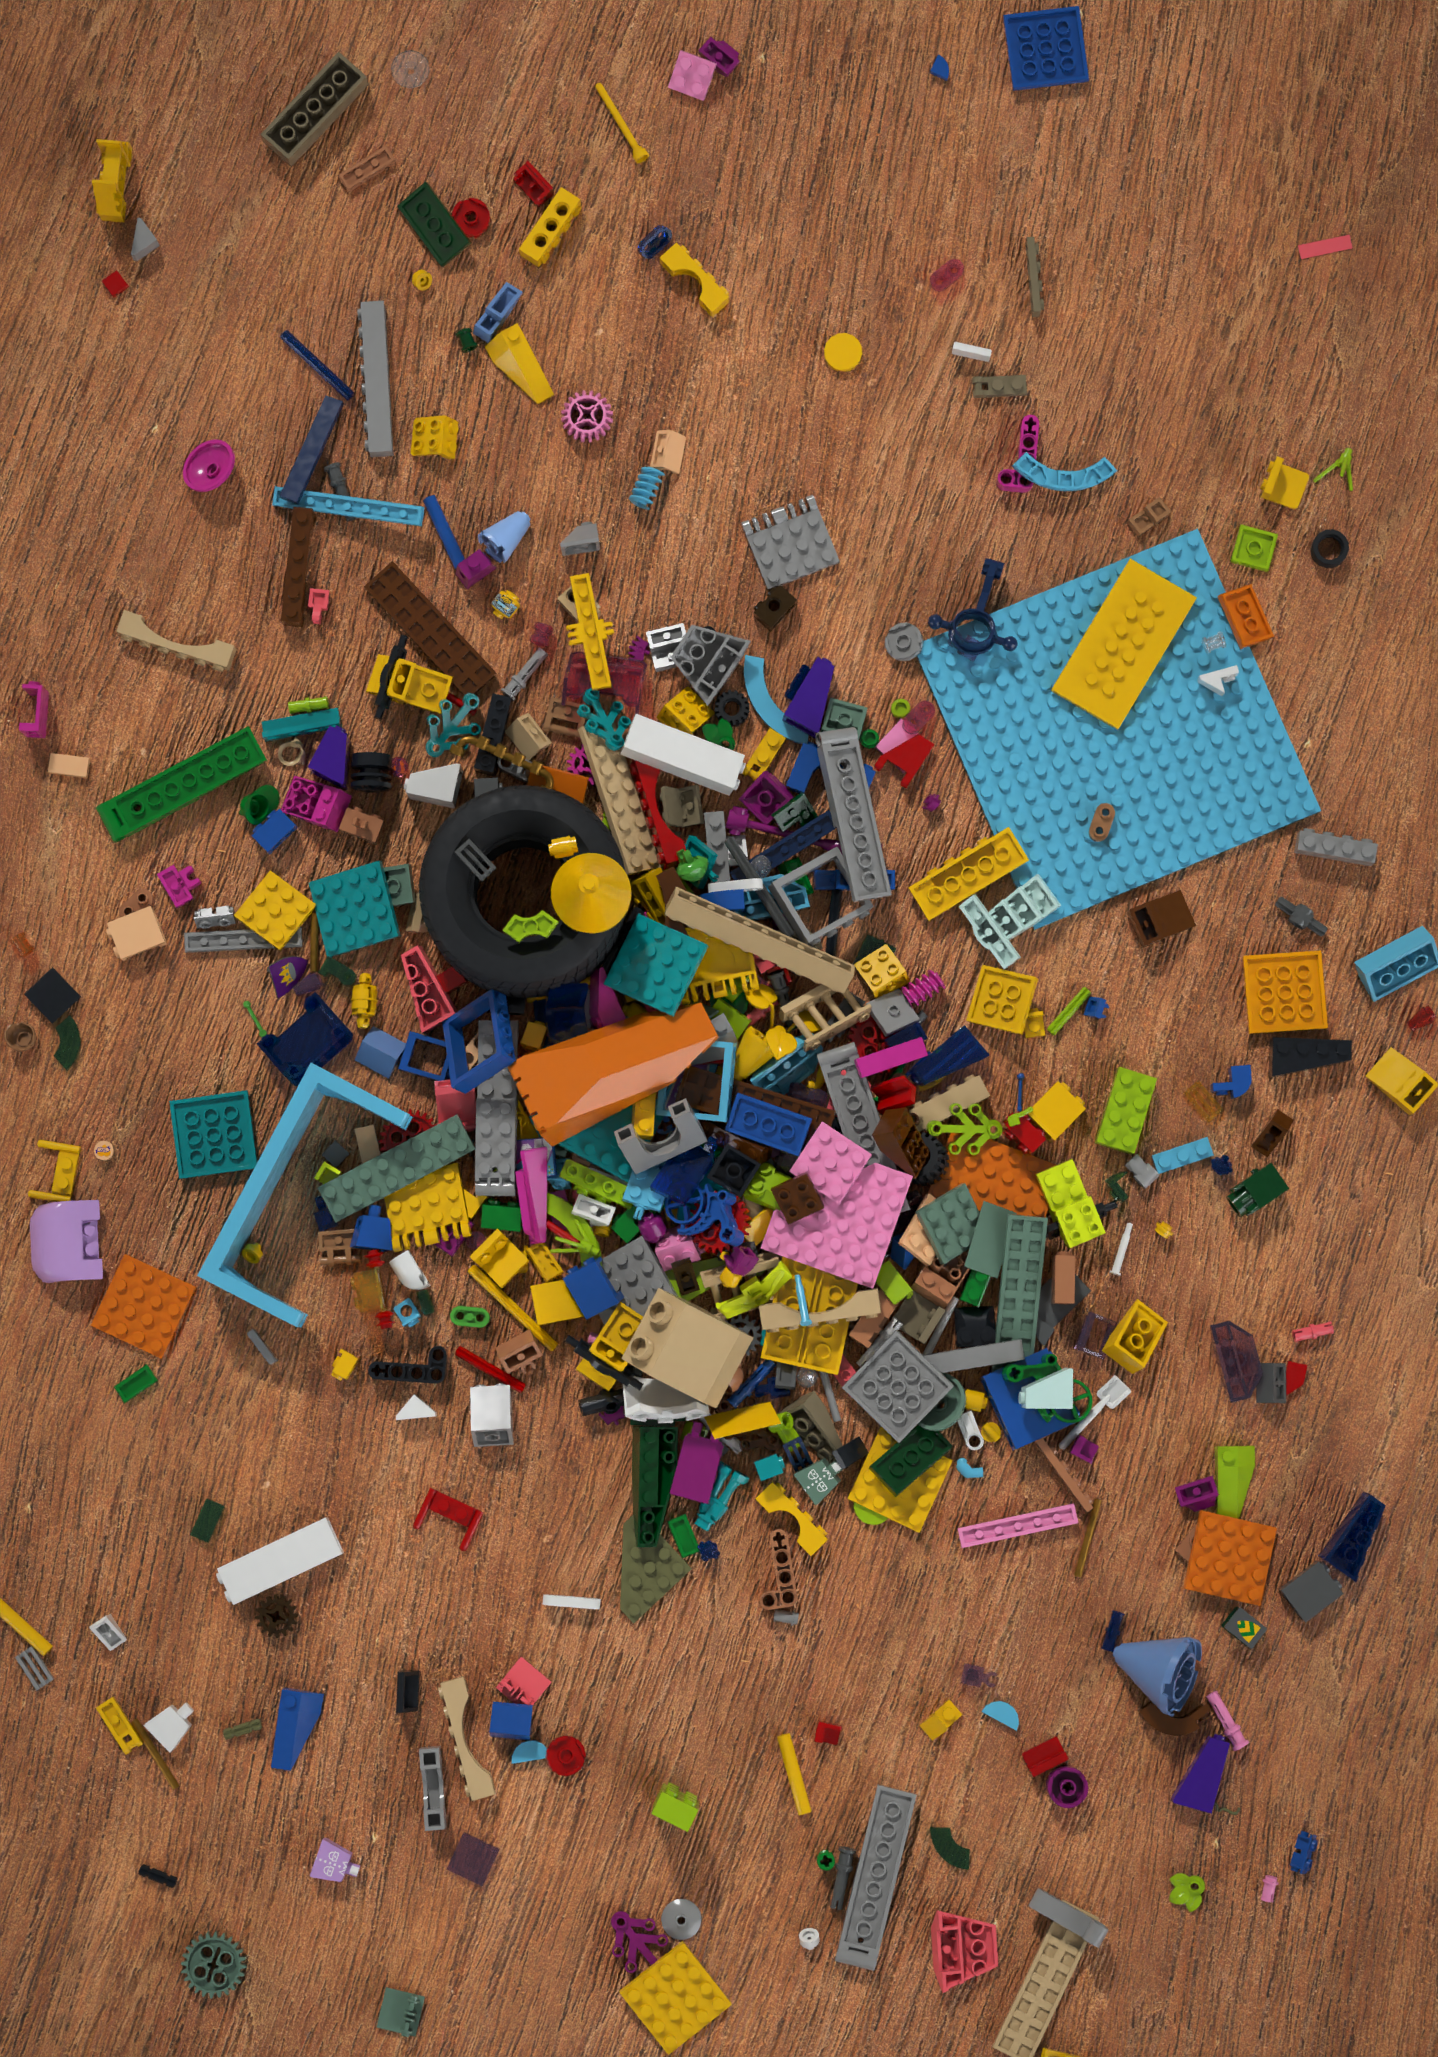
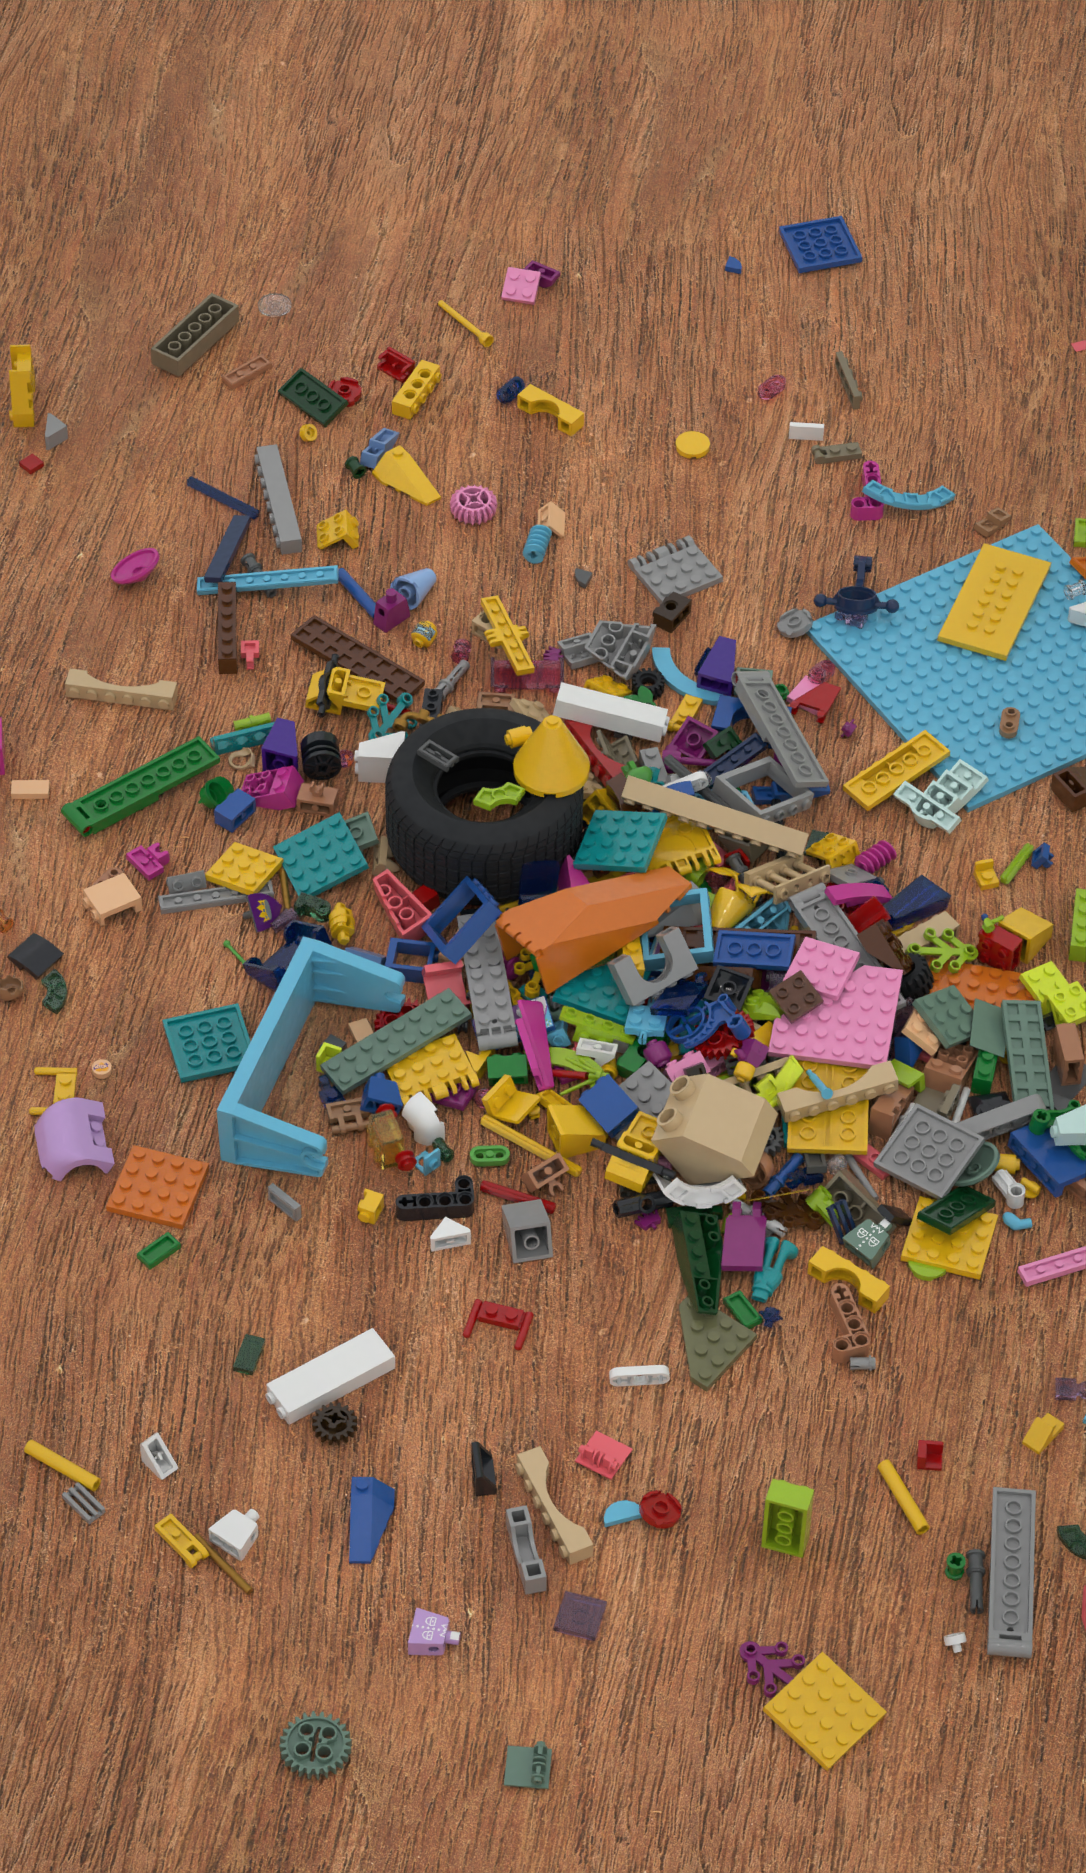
camera: 10 degrees left, 35 degrees down
(157, 1876) = (241, 1673): black axle -> none
(242, 1729) = (313, 1529): olive axle -> none
(511, 1720) = (597, 1483): blue slope -> none
(581, 540) = (485, 584): light grey slope -> none
(613, 739) = (544, 702): teal plant -> none
(681, 1908) = (803, 1643): light grey dish -> none
(689, 539) = (583, 577): none -> dark grey tile
(769, 1466) = (815, 1233): teal brick -> none
(900, 708) = (801, 670): lime tile -> none
(1002, 999) = (952, 855): yellow plate -> none

